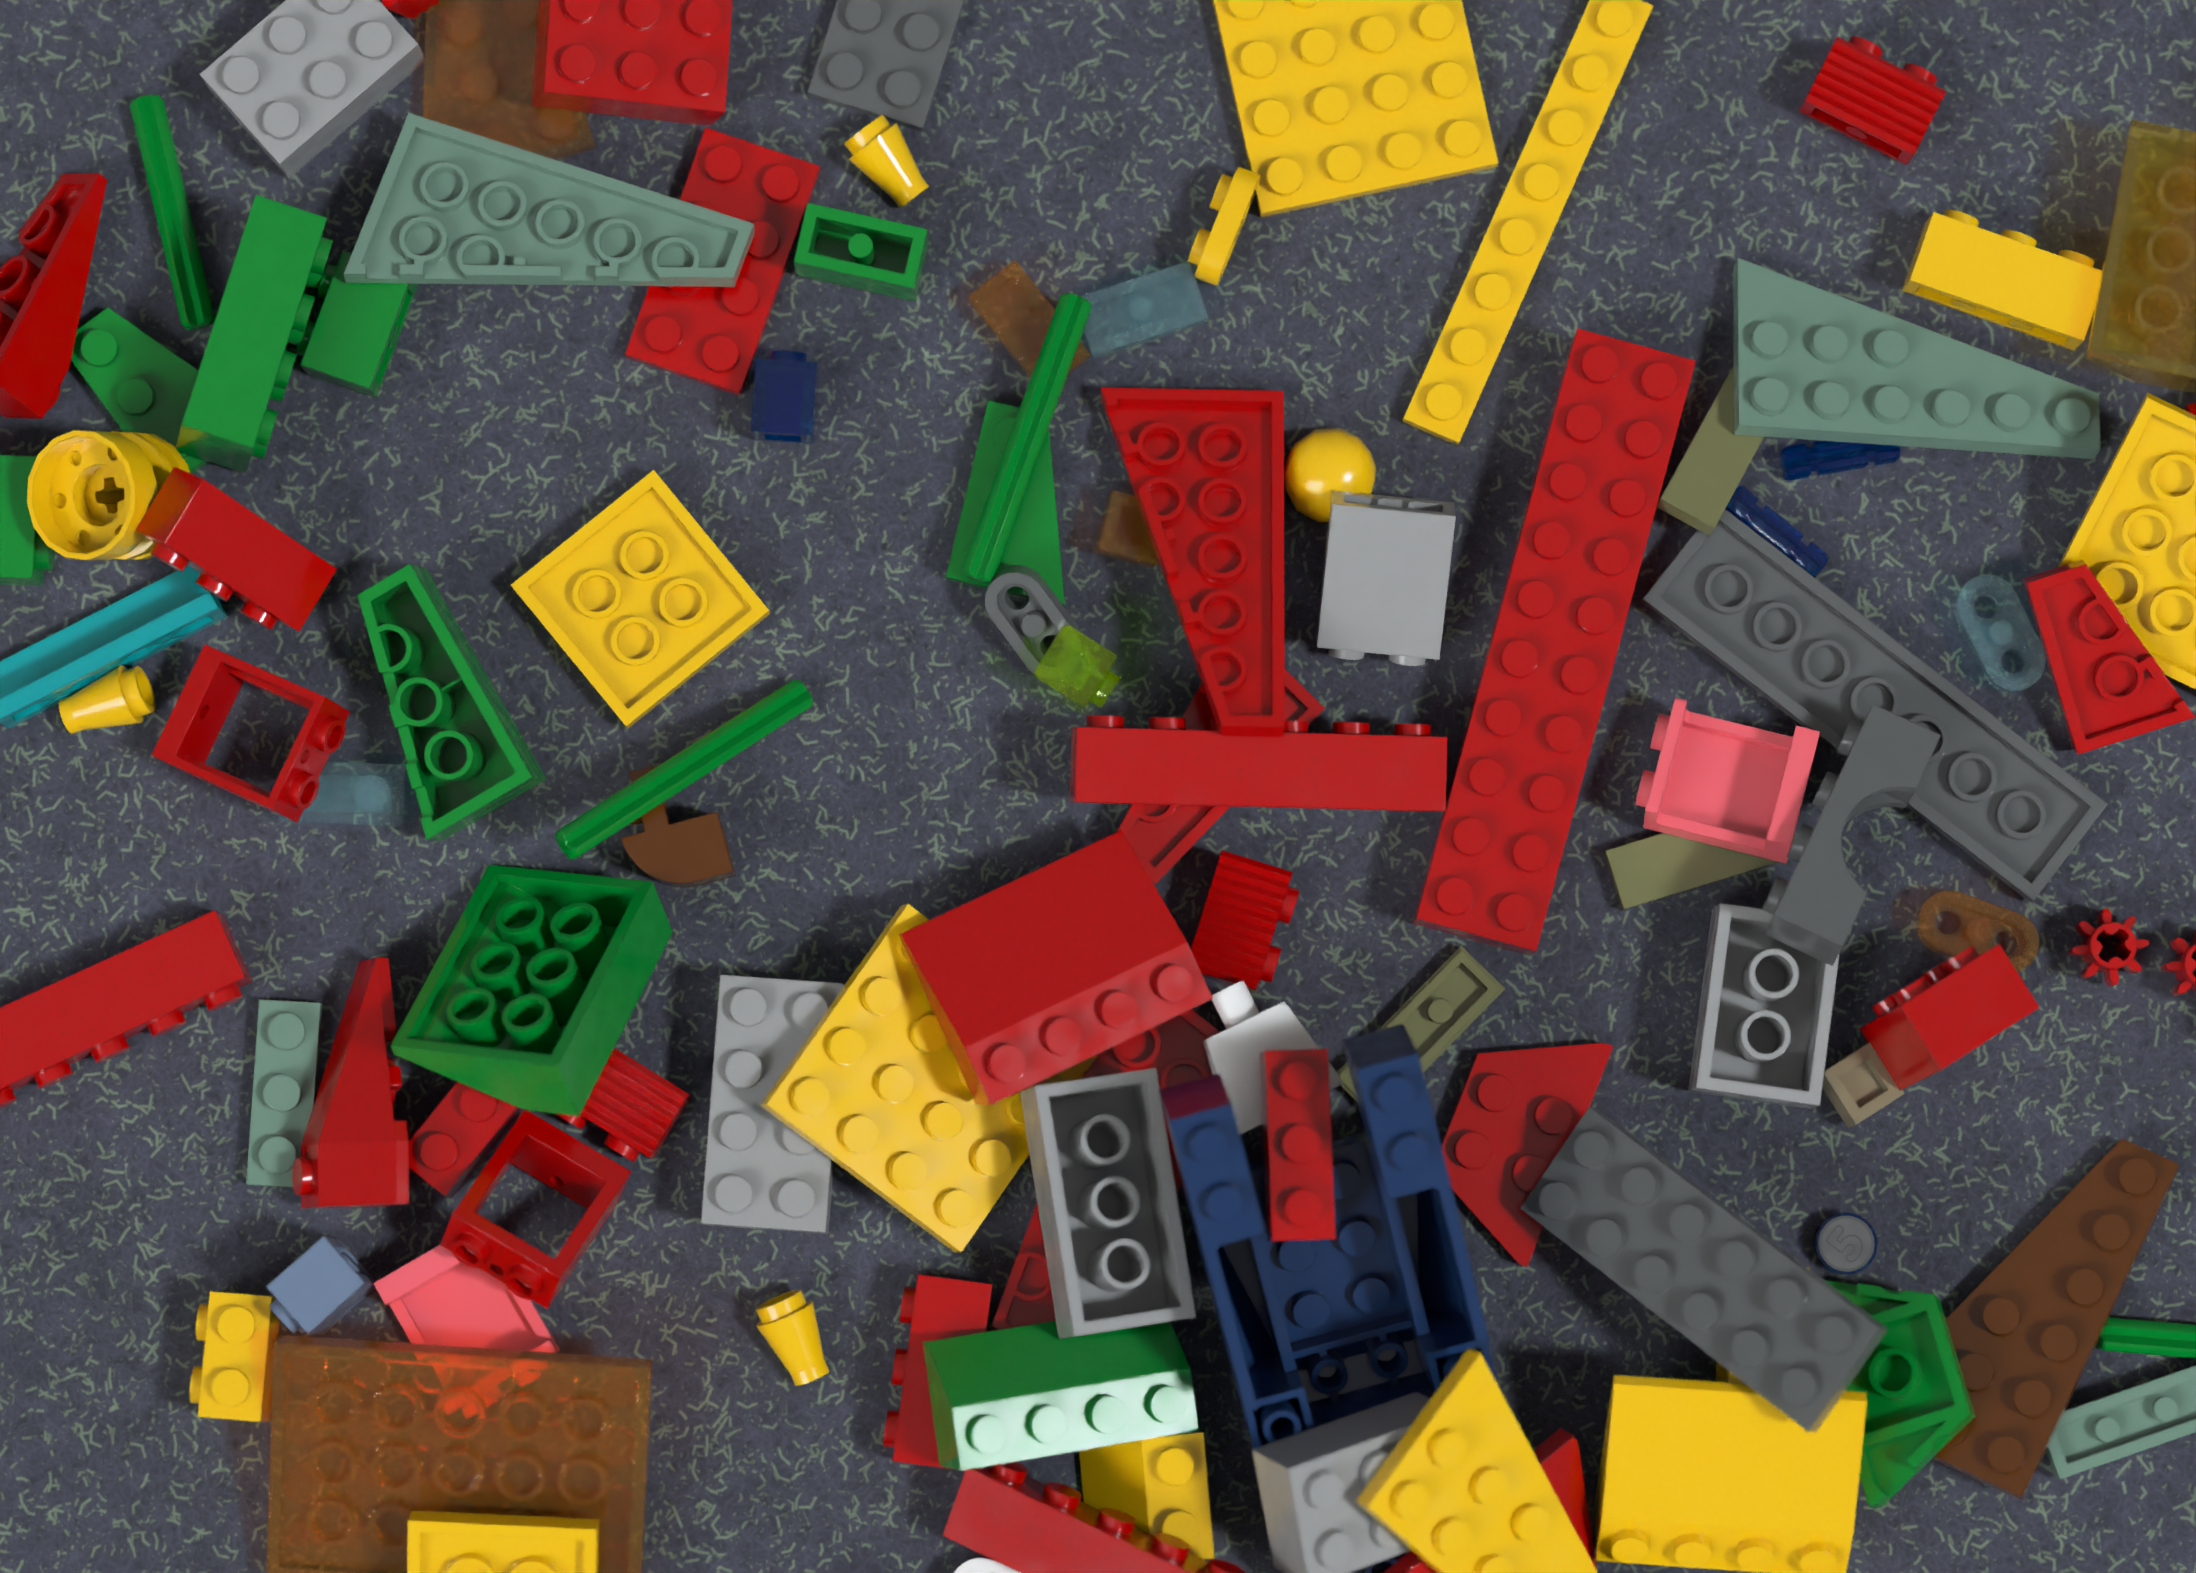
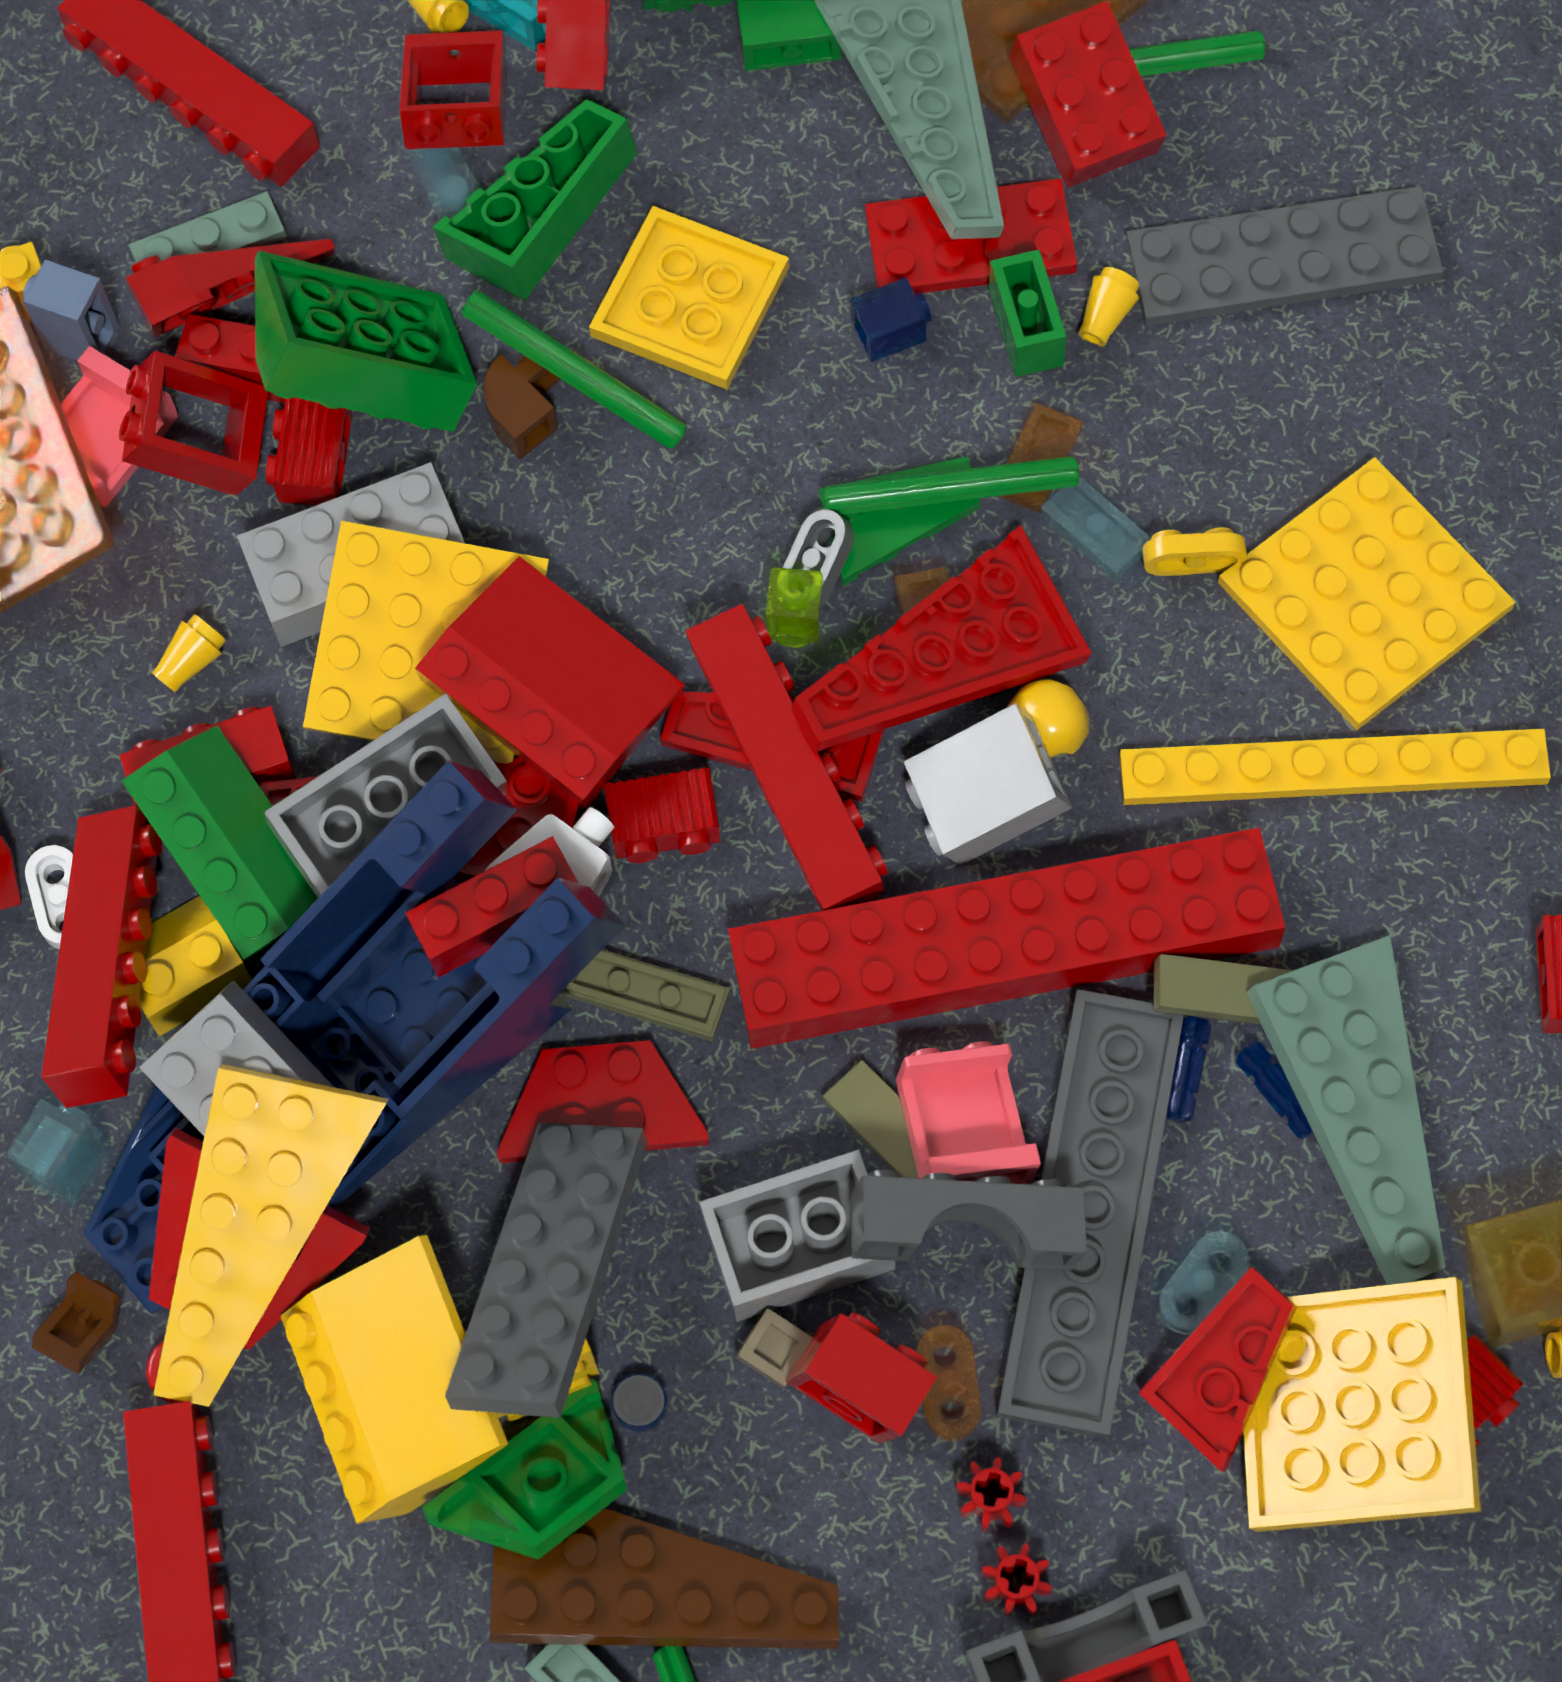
camera: 70 degrees right, 15 degrees down
(2004, 279) = (1492, 1137): yellow brick -> none

